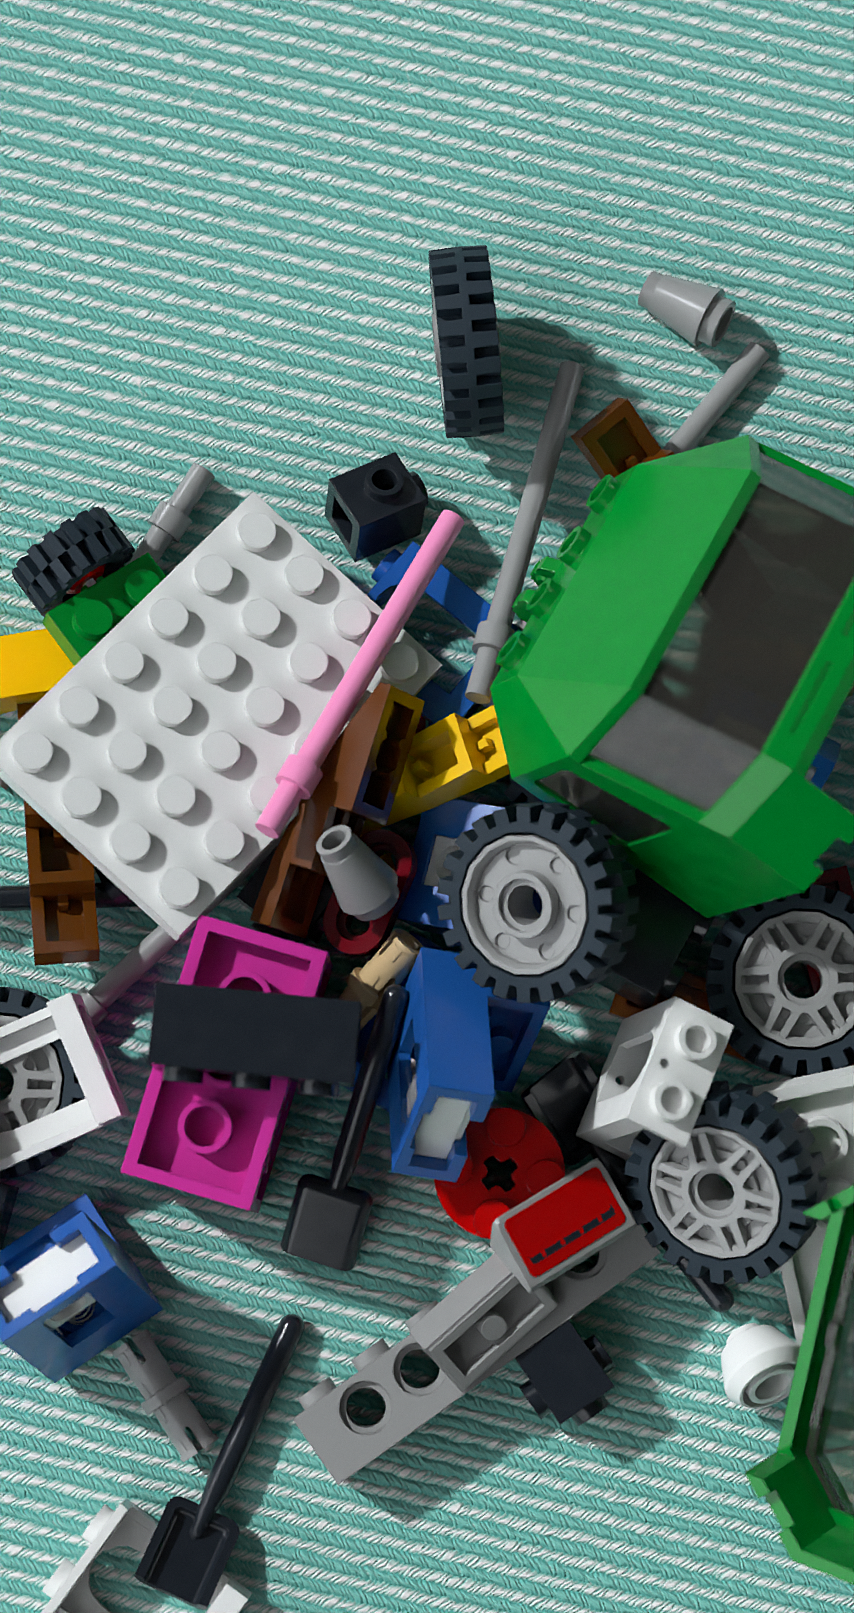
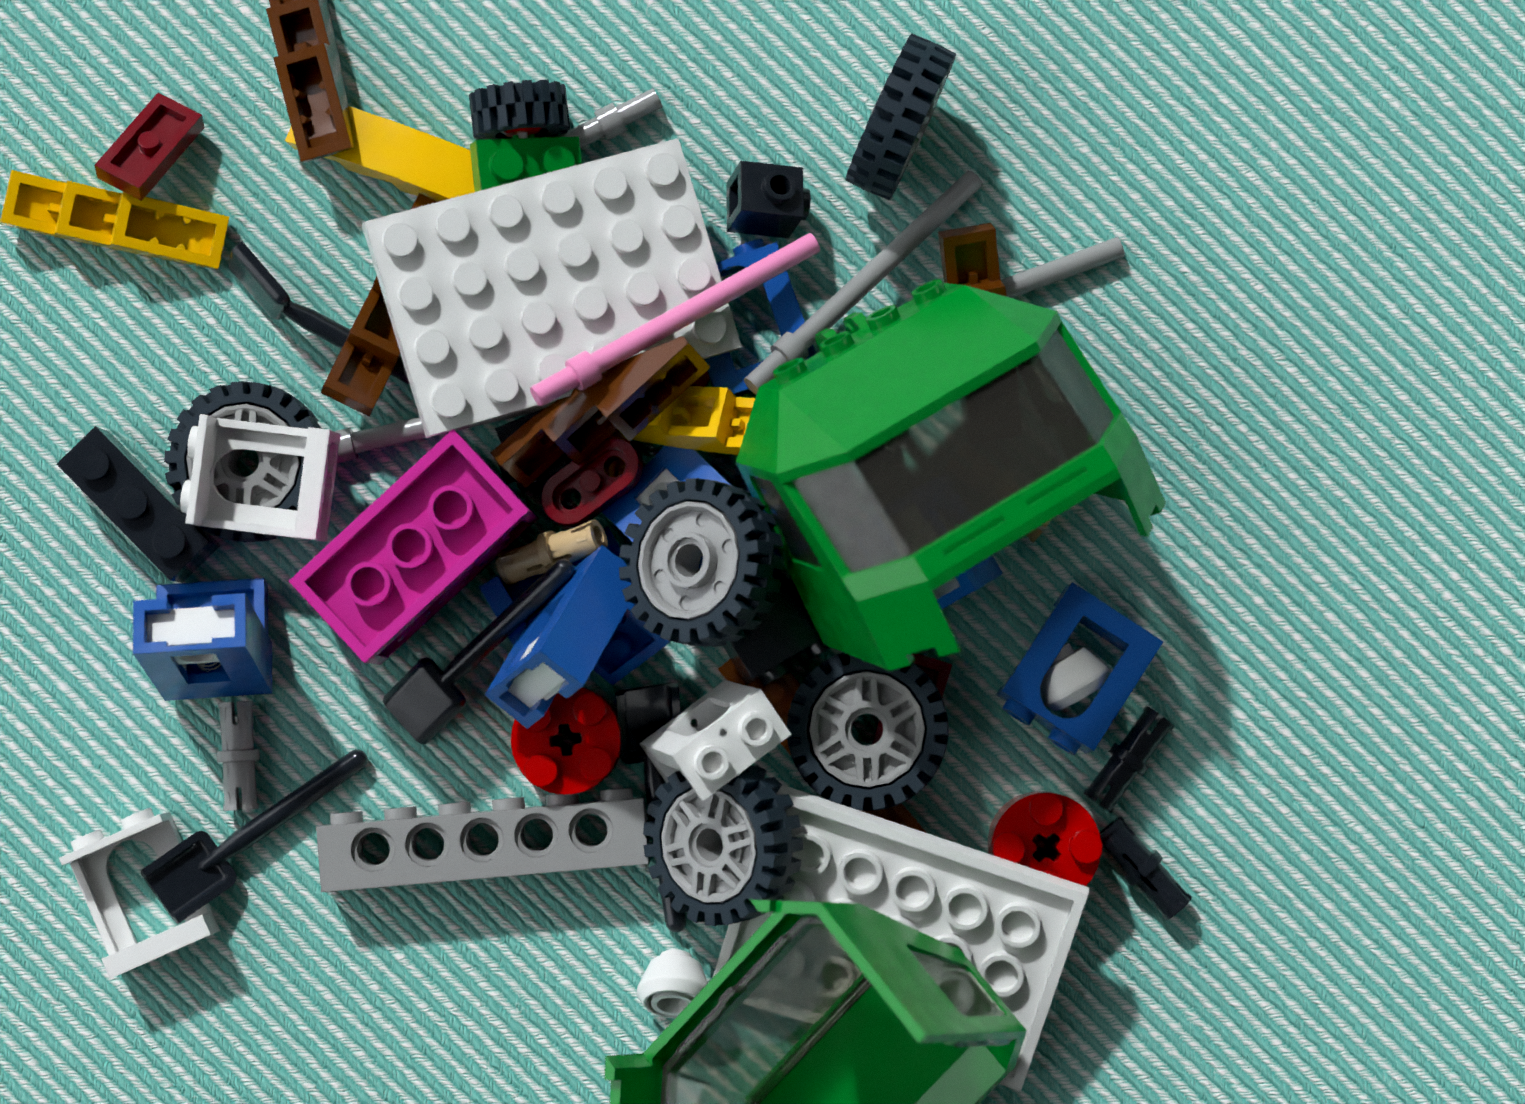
camera: 25 degrees right, 5 degrees up
(254, 1038) = (437, 543): black brick -> none
(357, 874) = (586, 467): light grey cone -> none
(481, 1321) = (493, 835): light grey slope -> none
(561, 1226) = (585, 804): red slope -> none
(566, 1375) = (531, 910): black brick -> none
(689, 308) = (1086, 185): light grey cone -> none

